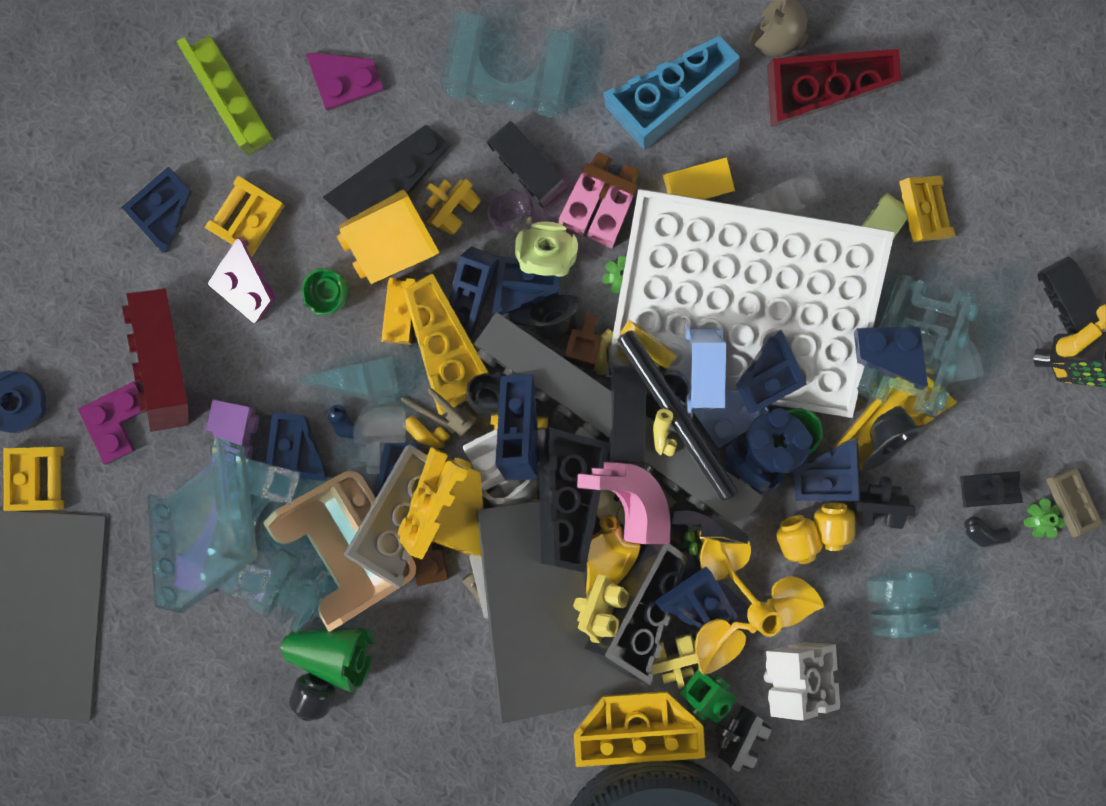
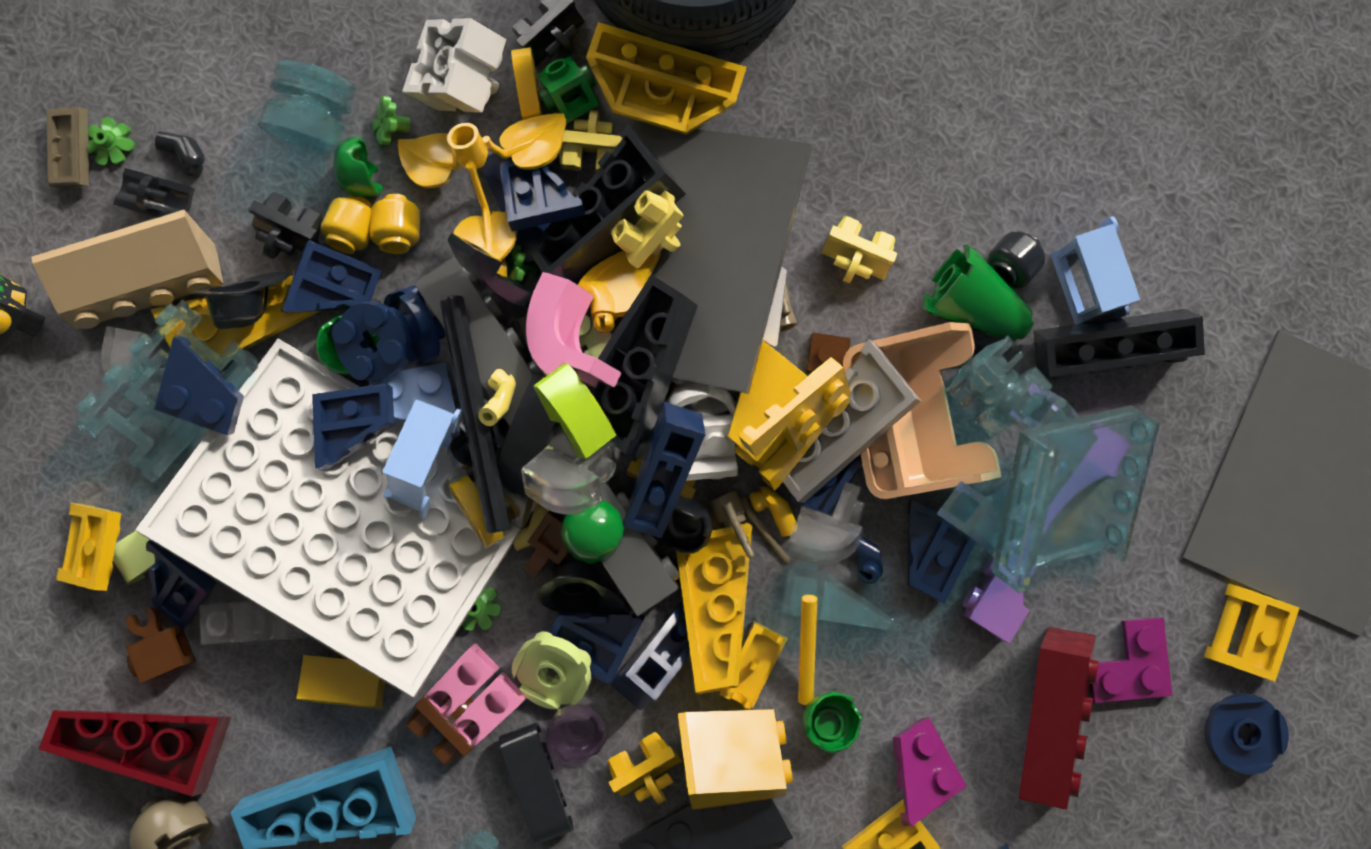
camera: 160 degrees left, 0 degrees up
(209, 661) = (1119, 343): none -> black brick
(239, 711) = (1104, 271): none -> light blue piece
(362, 338) = (807, 649): none -> yellow bar
(435, 652) = (858, 254): none -> light yellow hips
(554, 361) = (593, 533): none -> green hair
(585, 387) = (566, 483): none -> clear brick
(599, 445) = (576, 409): none -> lime slope
(742, 689) = (526, 82): none -> yellow beam
(838, 617) = (388, 121): none -> bright green plant
(843, 153) = (159, 650): none -> reddish brown brick
(846, 569) = (354, 170): none -> green hair
(848, 204) = (177, 586): none -> dark blue wing
(984, 425) = (128, 270): none -> tan slope

